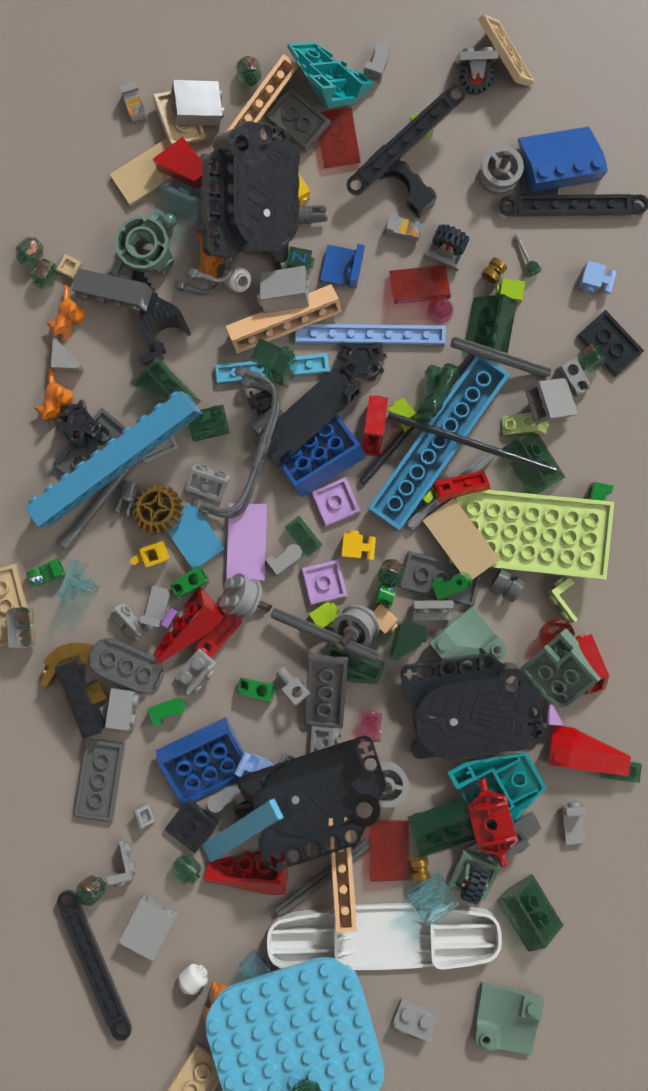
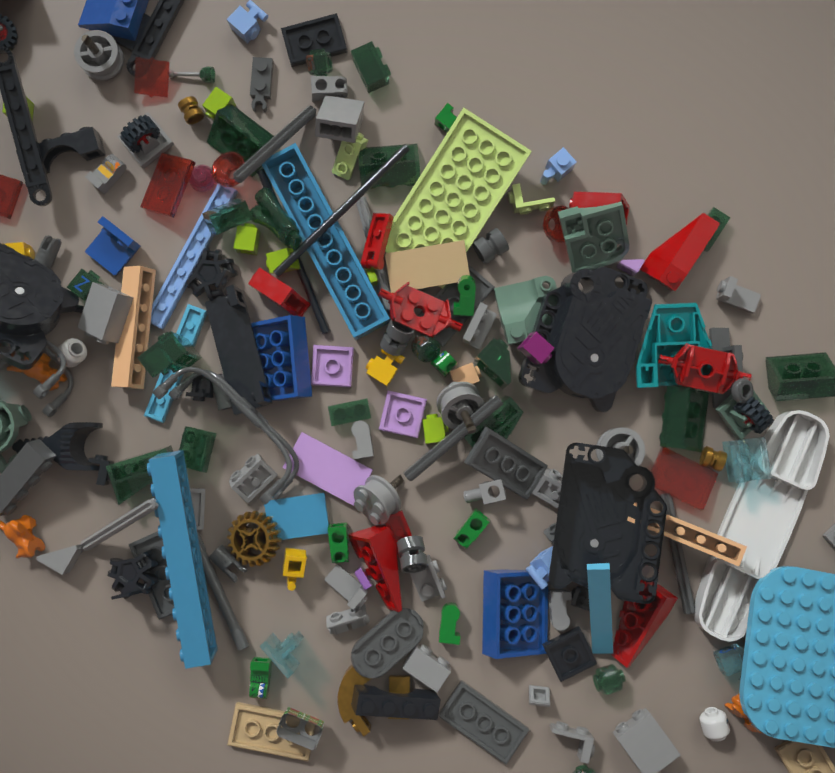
camera: 60 degrees left, 0 degrees up
(55, 397) = (95, 586): orange animal -> none
(115, 393) = (120, 524): none -> light grey axle
(211, 648) = (411, 550): none -> dark grey wheel
(371, 725) = (559, 437): clear pink bracket -> none
(387, 544) = (396, 338): none -> dark grey wheel
(407, 375) = (247, 239): none -> lime brick
(418, 348) = (227, 216): none -> clear green brick
(426, 566) = (436, 312): none -> red plate
(436, 668) = (536, 348): none -> magenta brick
(460, 323) = (224, 166): none -> clear red piece
(486, 859) = (736, 390): none -> dark grey piece
(505, 223) = (151, 77): none -> clear red piece
(550, 316) = (261, 81): none -> dark grey plate
(607, 609) = (558, 166): none -> light blue brick
(611, 403) = (370, 67): none -> clear green brick

